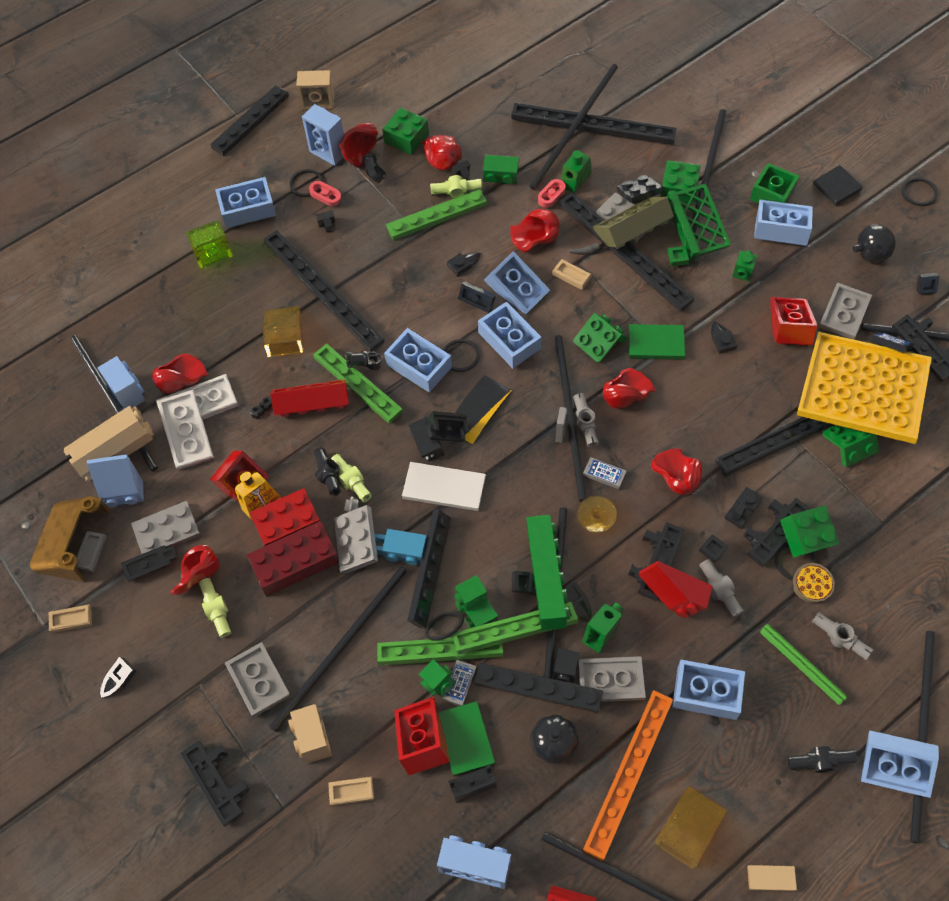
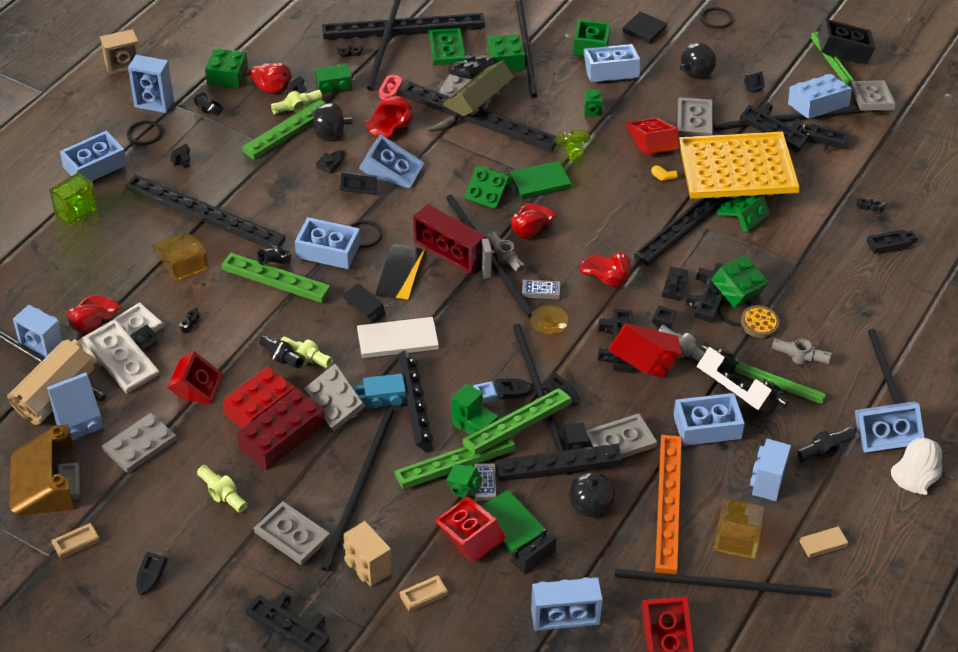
camera: 25 degrees left, 15 degrees down
(148, 562) = (136, 471): black hinge -> none
(196, 565) = (187, 459): red piece -> none
(213, 415) = (144, 337): none -> black tile
(249, 120) = (60, 94): black plate -> none
(254, 492) = (218, 384): yellow torso -> none
(309, 397) = (236, 297): red brick -> none
(326, 194) = (169, 135): coral plate -> none
(351, 504) = (316, 371): light grey plate -> none
(358, 142) = (185, 87): red piece -> none
(438, 638) = (439, 451): black piece -> none
(447, 426) = (381, 285): black hinge -> none
(475, 219) = (330, 122): none -> black piece
(502, 577) = (488, 391): none -> light blue tile
(509, 335) = (401, 200): light blue brick -> none
(526, 139) = (354, 51): none -> black piece
(533, 389) = (448, 238): none -> dark red brick
(546, 572) = (526, 371): green brick -> none
(571, 274) = (438, 146): tan tile -> none
(577, 166) = (406, 56): green torso -> none
(602, 626) = (597, 393): green torso -> none
(626, 157) = (446, 46): none -> green tile
(678, 256) = (529, 110): green plate -> none
(683, 222) = (525, 83): green fence -> none
(704, 312) = (573, 143): none -> clear neon green tile
(722, 338) = (599, 165): black plate -> none
(750, 772) = (770, 469): none -> light blue brick
(767, 681) = (761, 394): none -> brick
(783, 371) = (662, 174): none -> yellow arm
(892, 342) = (744, 129): black tile -> none
(912, 824) = (919, 466): none -> white piece

